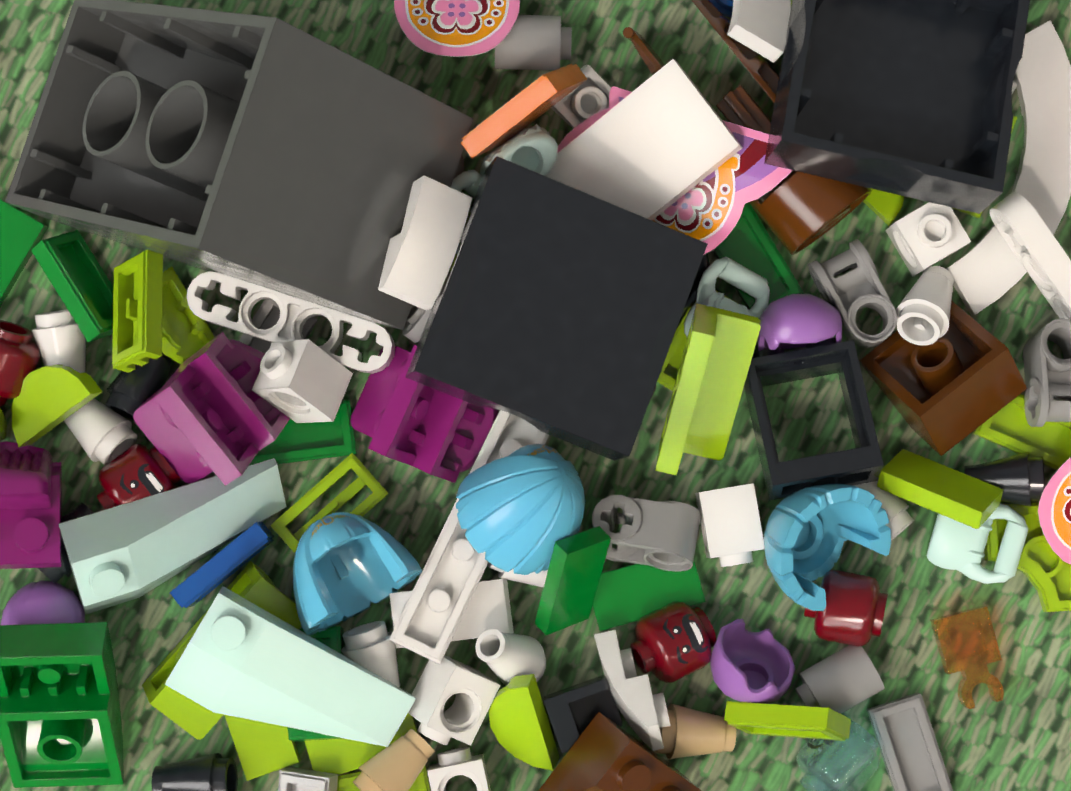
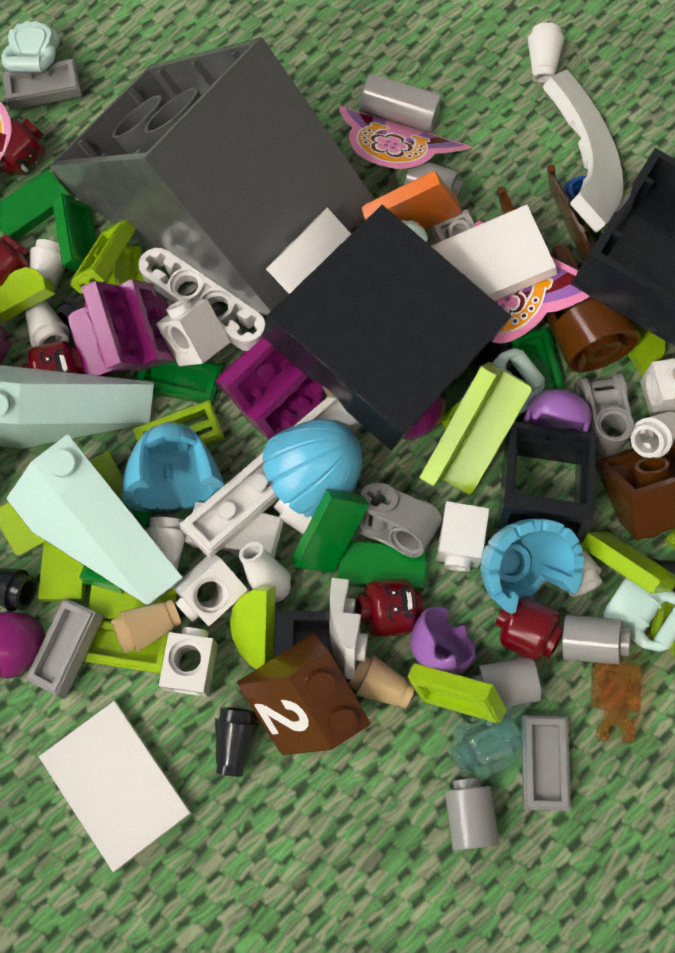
camera: 25 degrees right, 15 degrees down
(222, 565) = (97, 437): blue tile -> none
(926, 597) = (595, 639): none -> light grey brick

